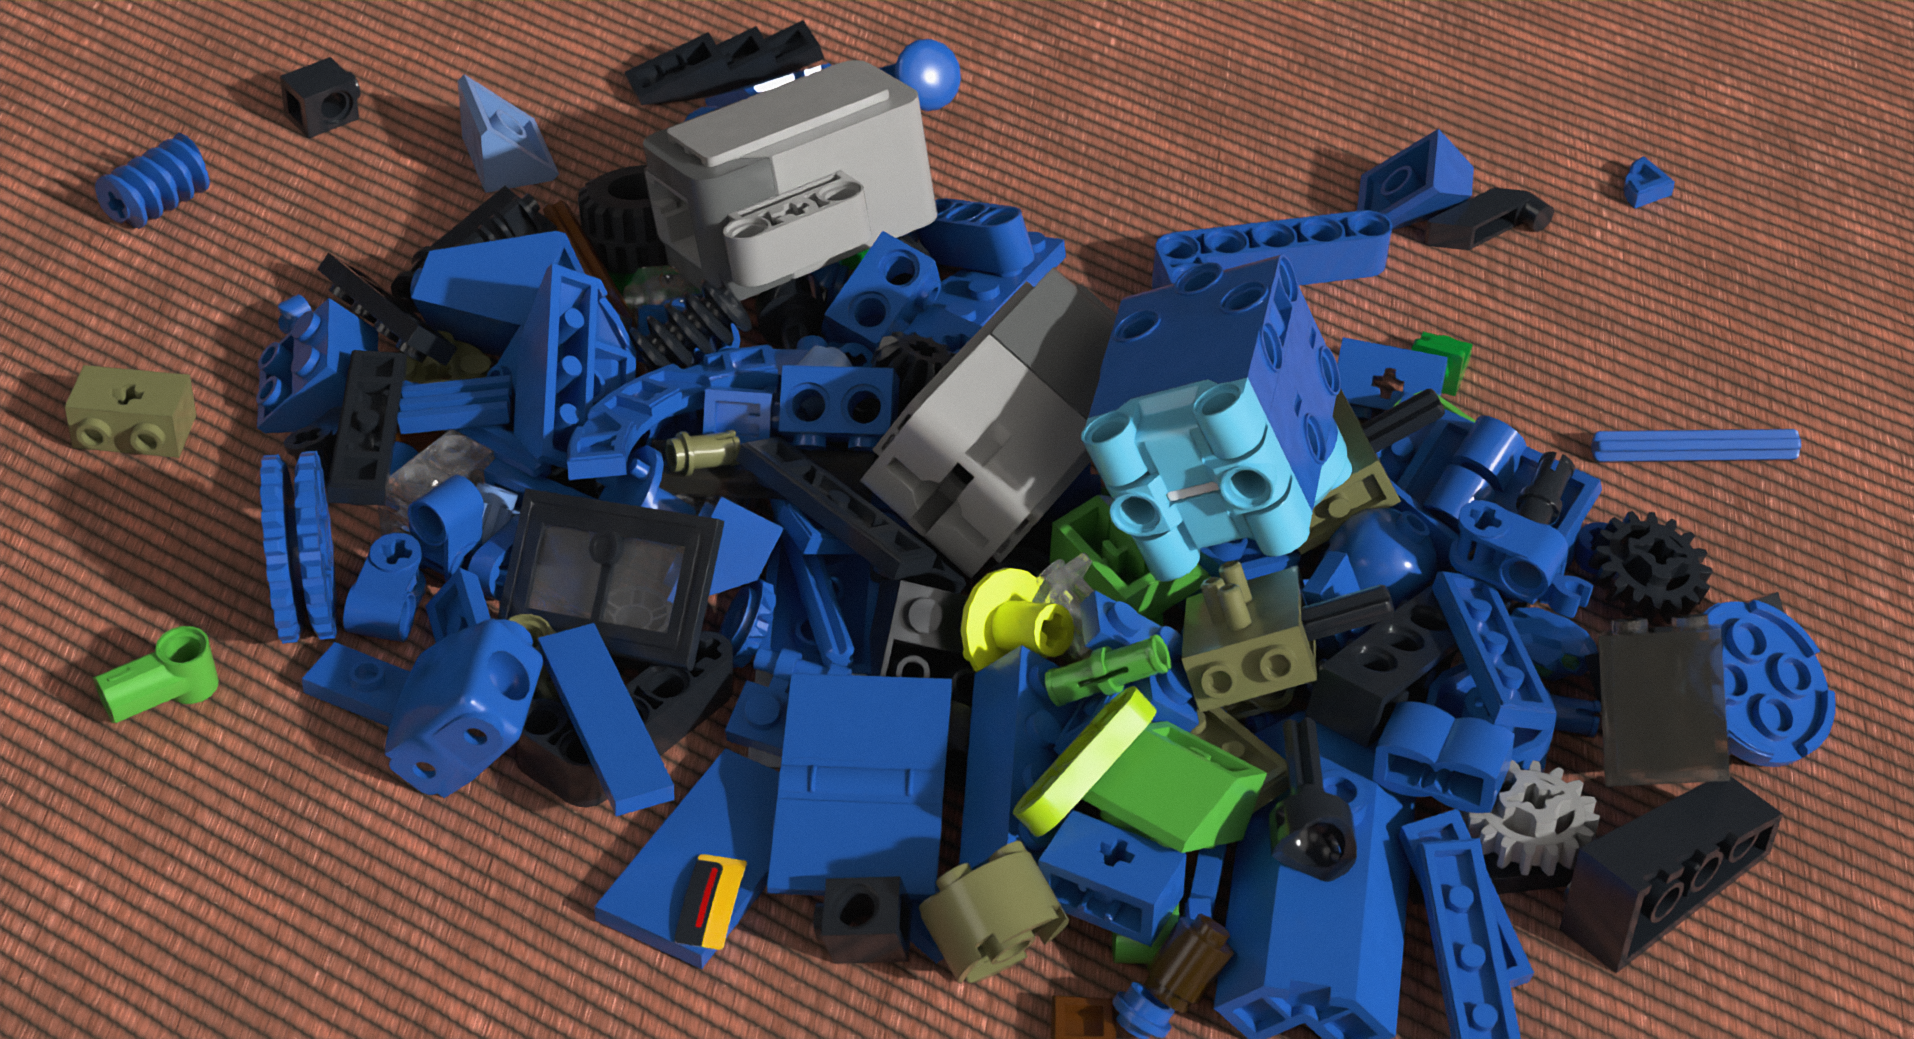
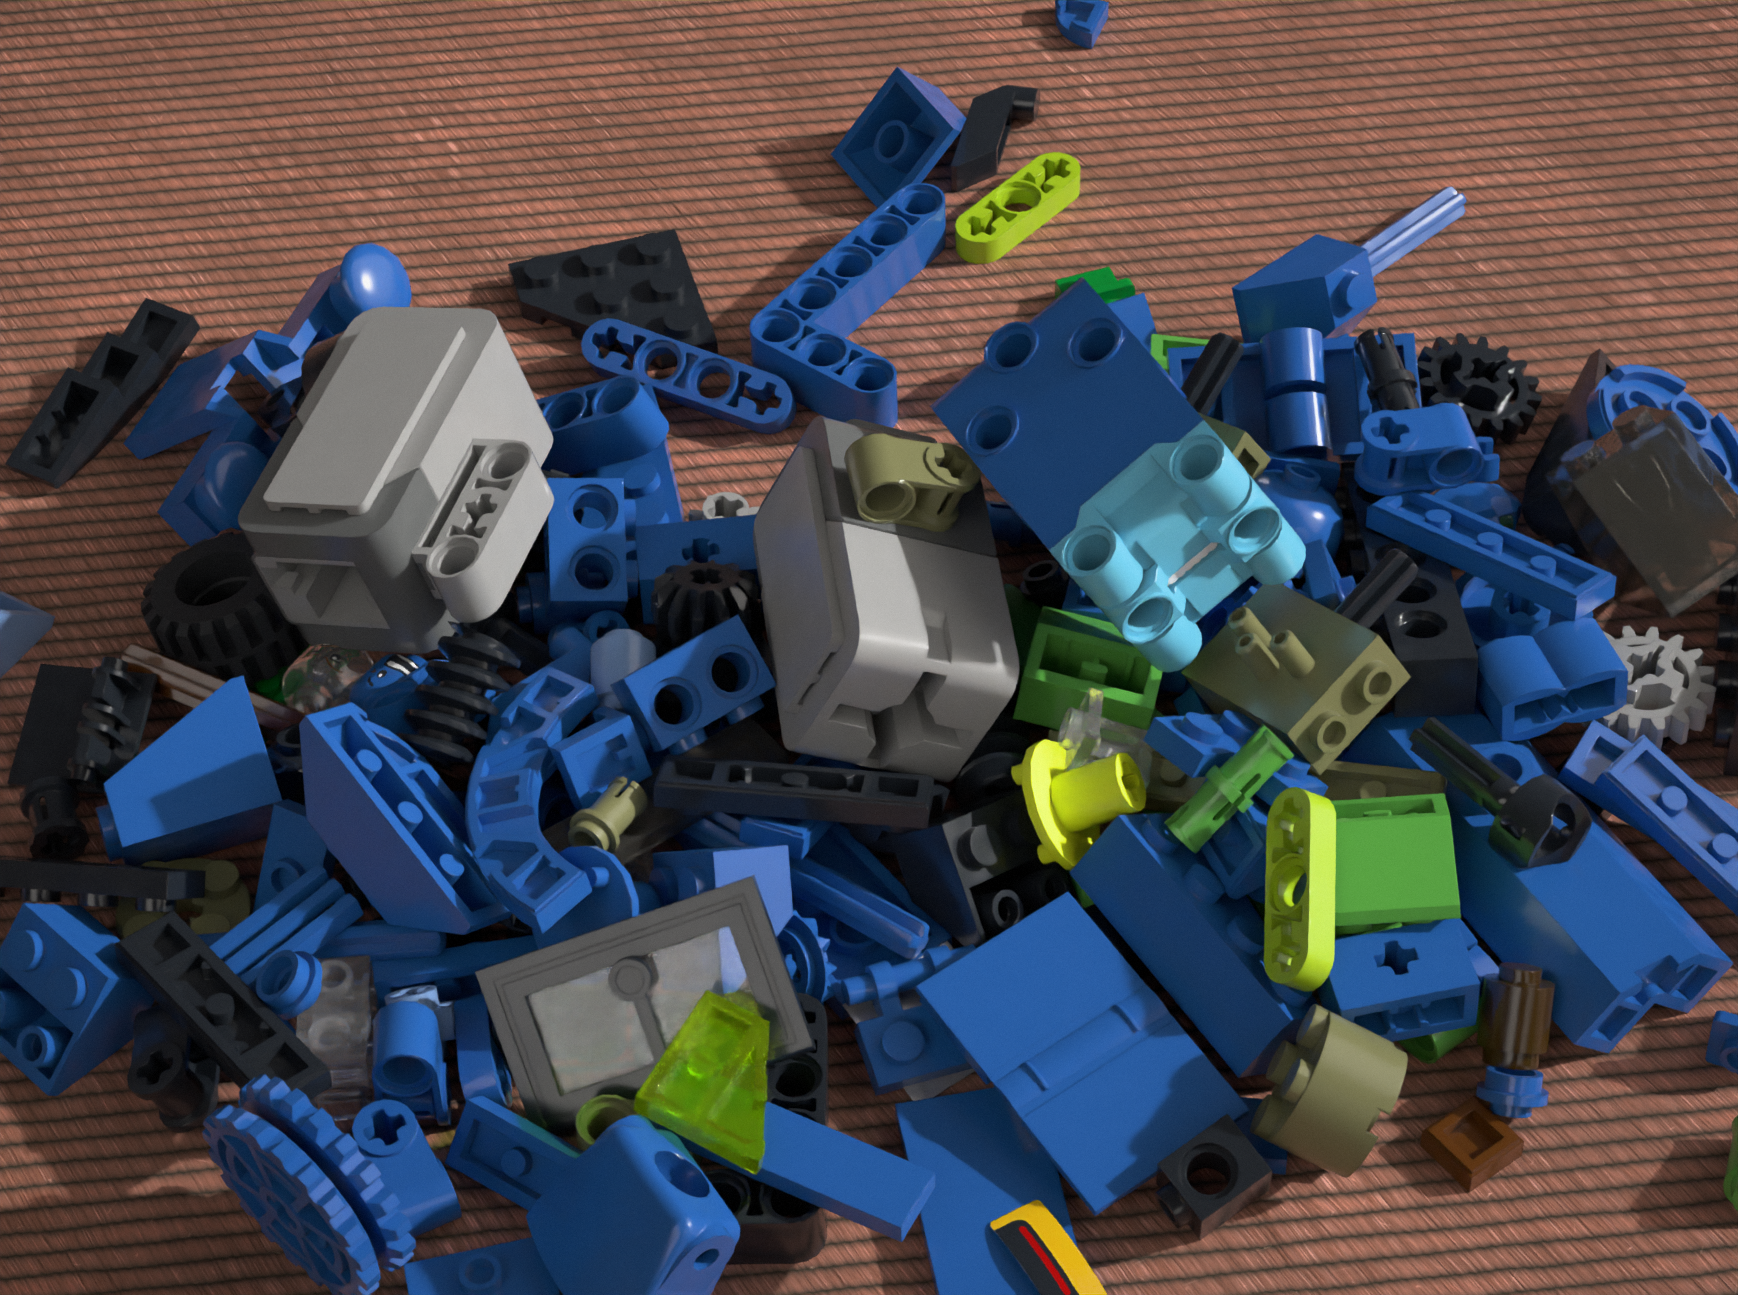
camera: 35 degrees left, 5 degrees up
(420, 431) = (289, 983): none -> blue plate
(592, 638) = (714, 1082): none -> clear neon green wing
(1057, 334) = (903, 481): none -> olive piece
(1096, 251) = (691, 370): none -> blue beam
(1115, 185) = (626, 280): none -> black plate
(1484, 272) = (1011, 227): none -> lime beam
(1572, 420) = (1313, 286): none -> blue slope

